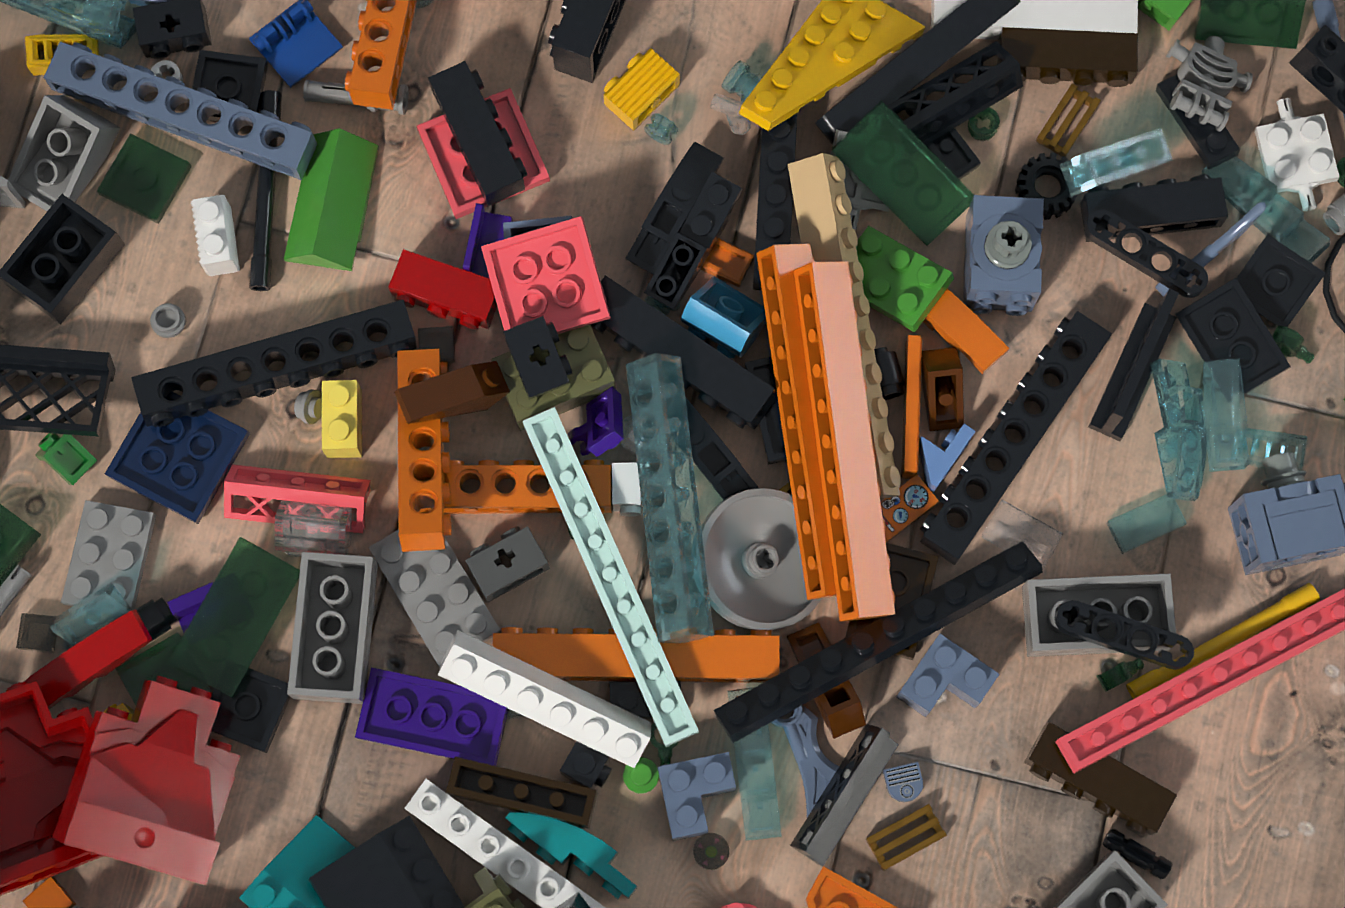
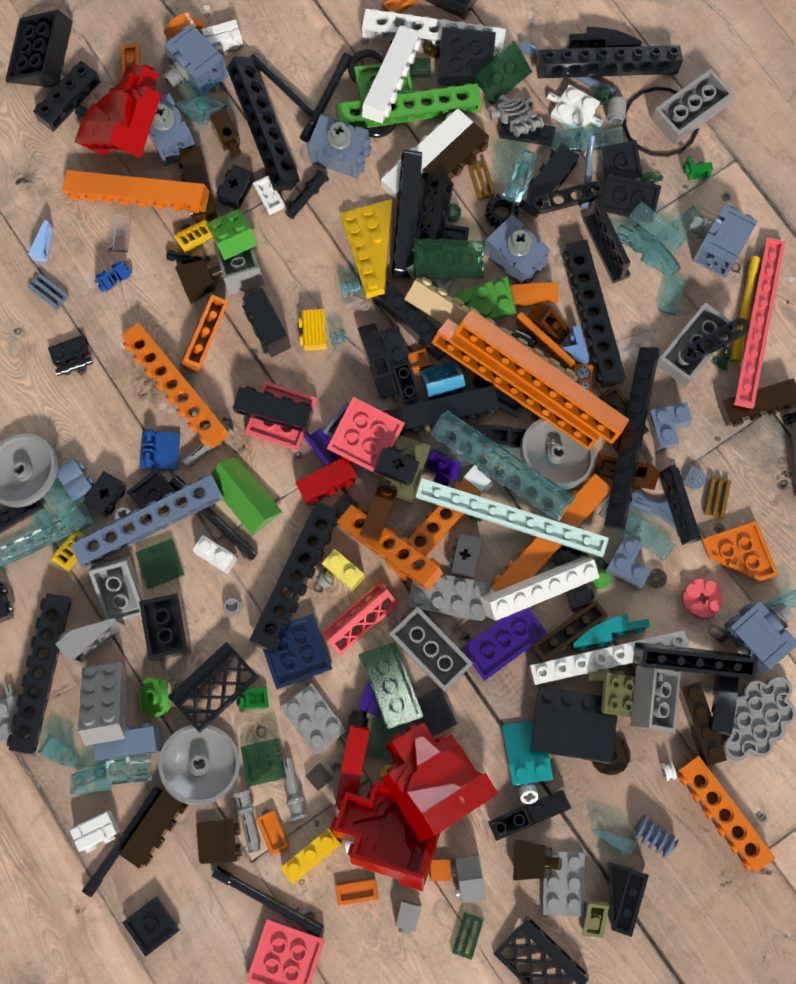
camera: 45 degrees left, 0 degrees up
(90, 615) = (333, 746): clear light blue slope -> none
(312, 528) = (380, 622): clear brick -> none

